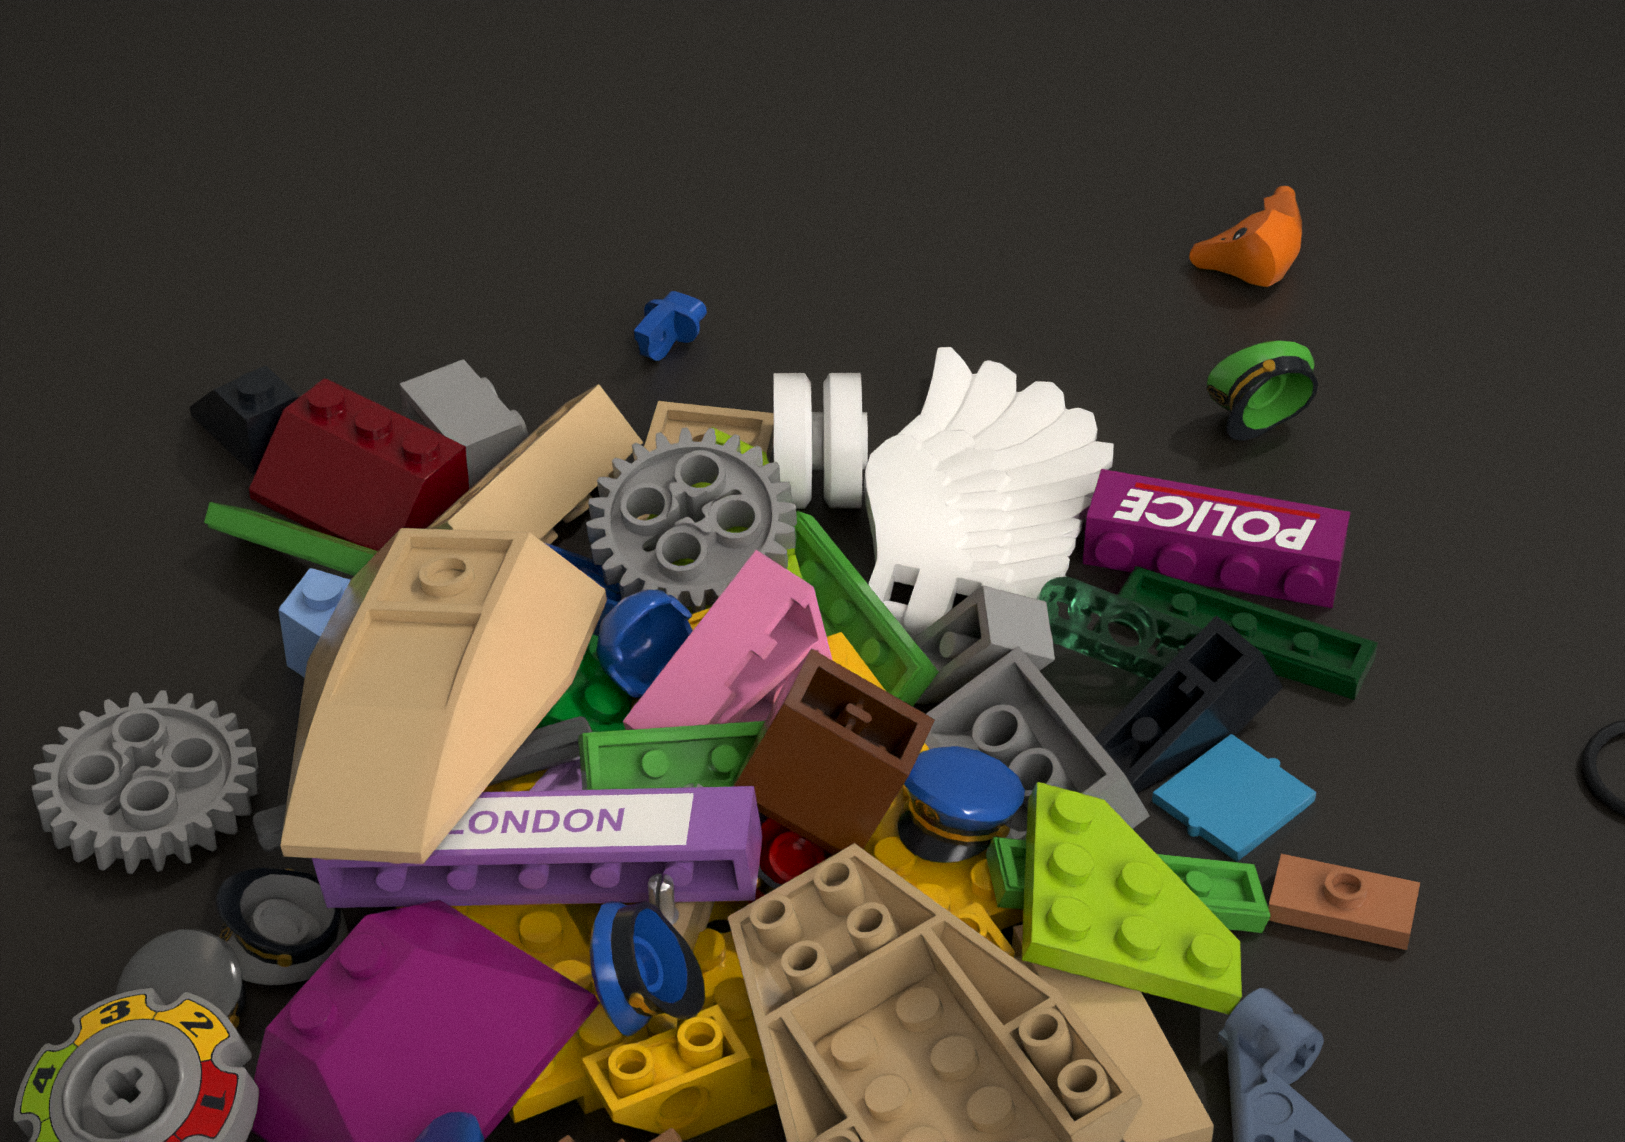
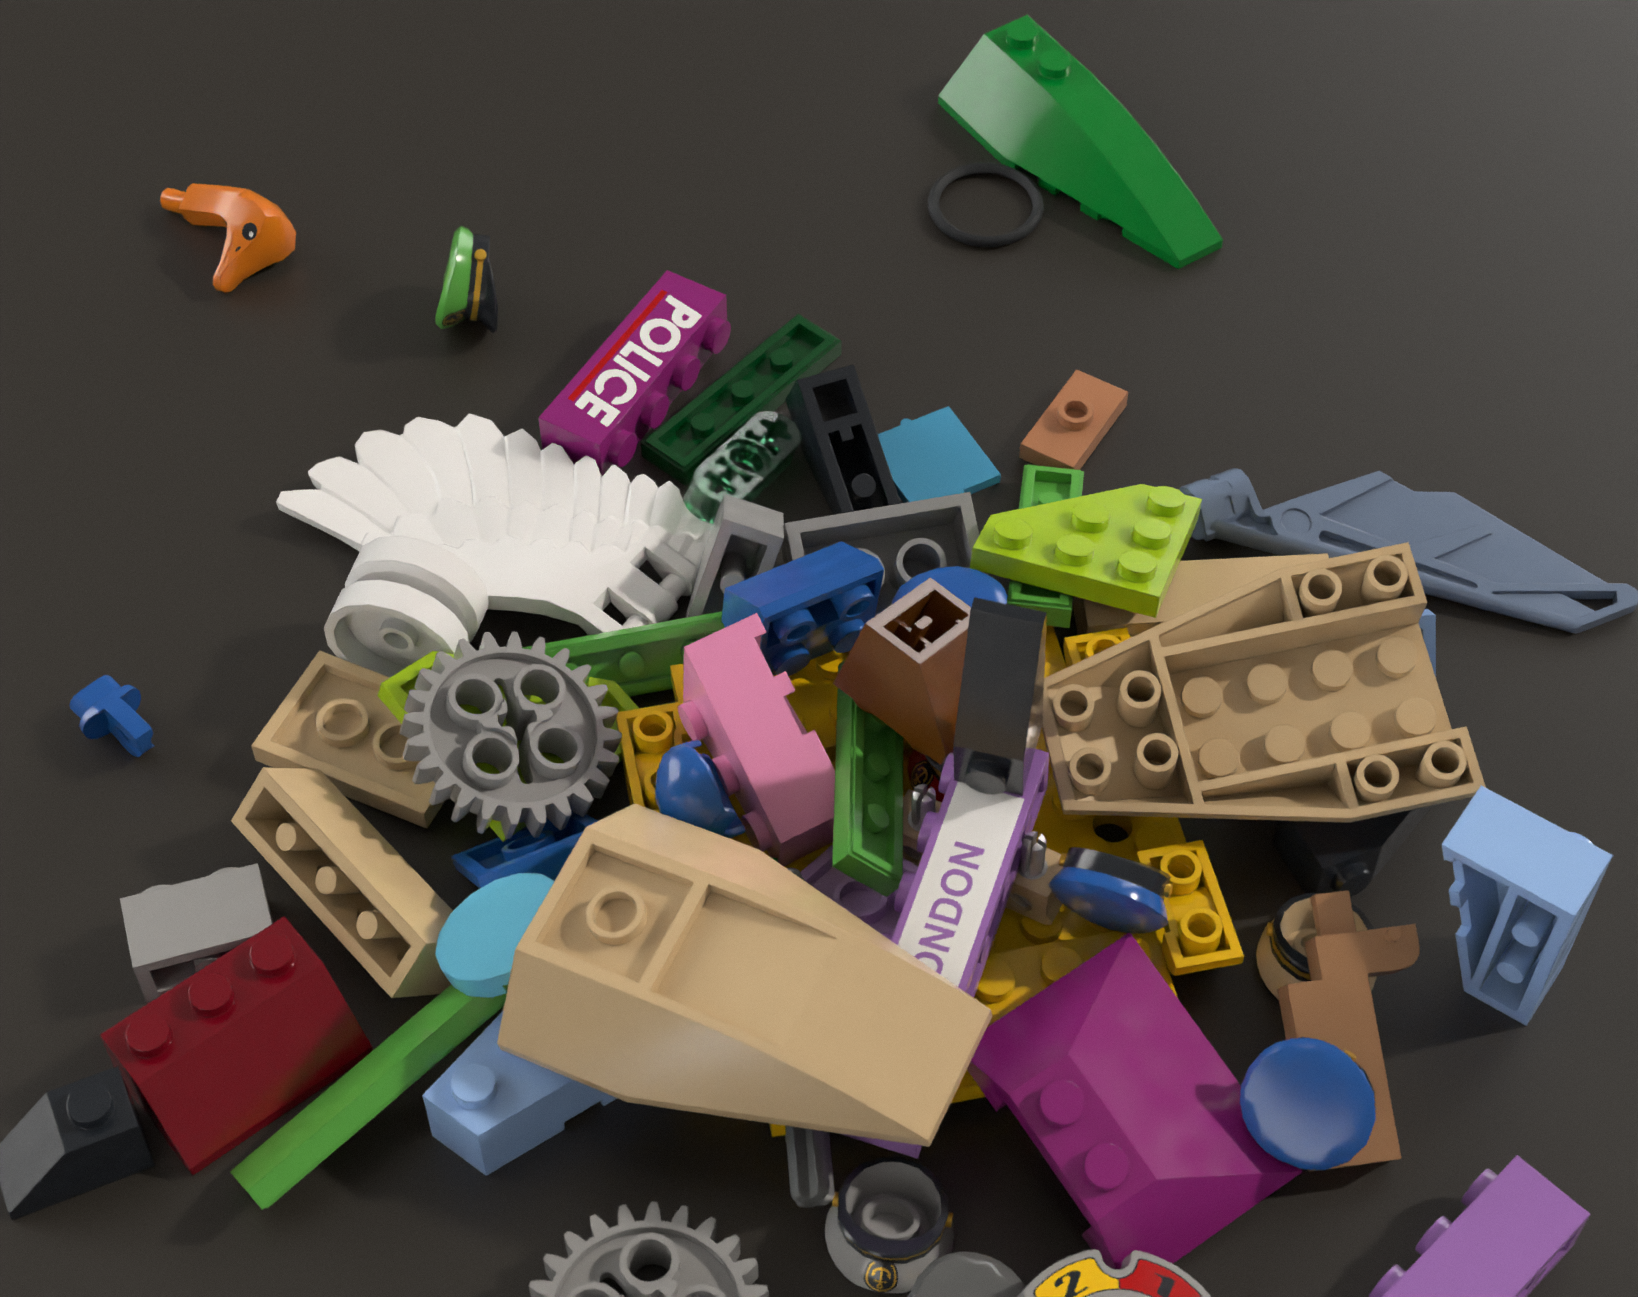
camera: 75 degrees left, 10 degrees up
(727, 753) = (1000, 697): none -> black slope
(905, 660) = (809, 604): none -> blue slope

